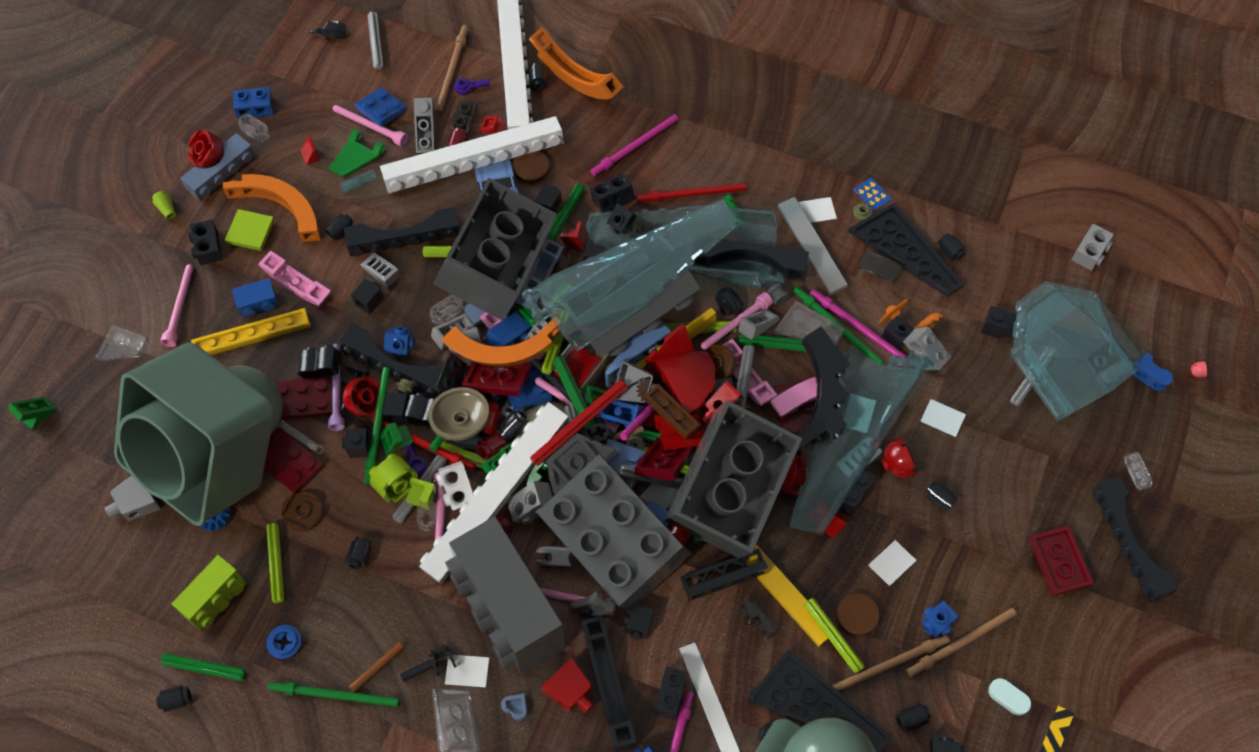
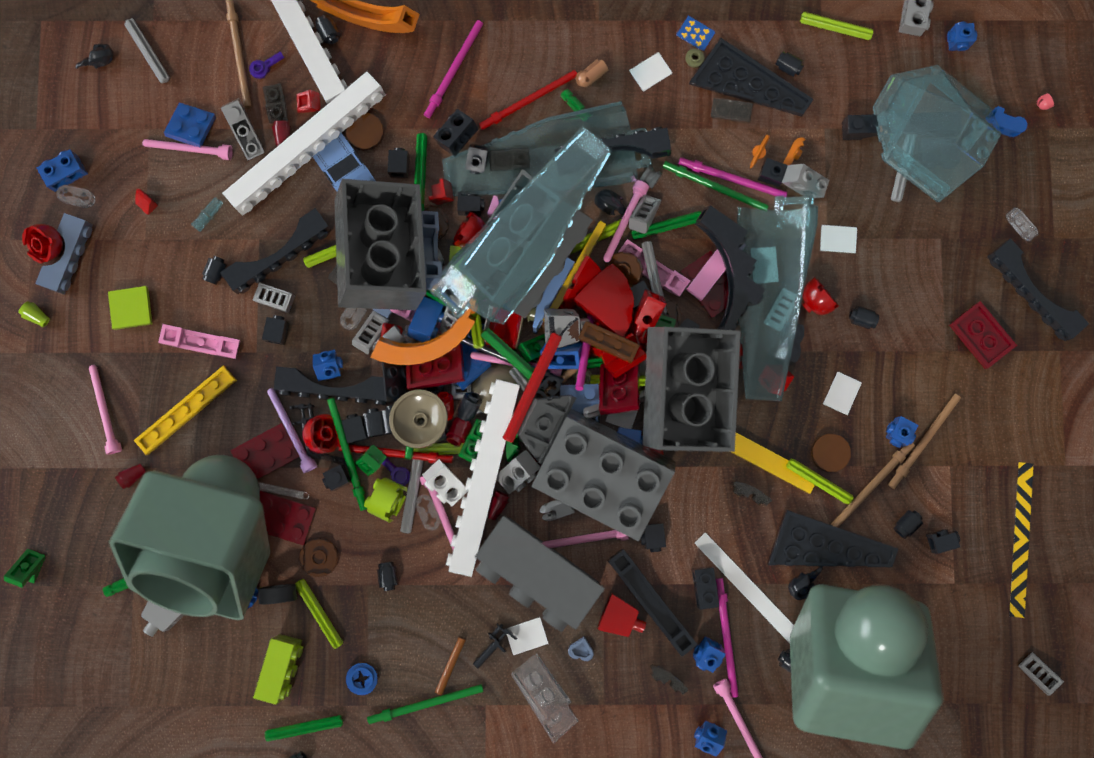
camera: 25 degrees left, 20 degrees up
(104, 461) = (115, 587): none -> green axle
(121, 344) = (71, 471): clear wing -> none
(205, 237) = (97, 335): black brick -> none
(246, 523) = (277, 594): none -> black tyre
(255, 298) = (173, 376): blue brick -> none
(281, 192) = (139, 256): orange arch -> none
(318, 362) = (264, 416): black brick -> none
(355, 155) = (190, 188): green flag -> none
(405, 386) = (353, 407): olive plate -> none
(421, 493) = (417, 503): lime panel -> none
(591, 606) = (605, 545): dark grey plate -> none
(726, 579) = (708, 474): black fence -> none
(759, 191) = (591, 73): none -> nougat piece
(802, 321) = (690, 197): clear wing -> none
(812, 243) = (661, 112): light grey tile -> none
(1009, 697) = (978, 472): light aqua tile -> none
(1011, 232) = (836, 25): none -> lime axle
(1131, 281) = (961, 36): none -> blue brick

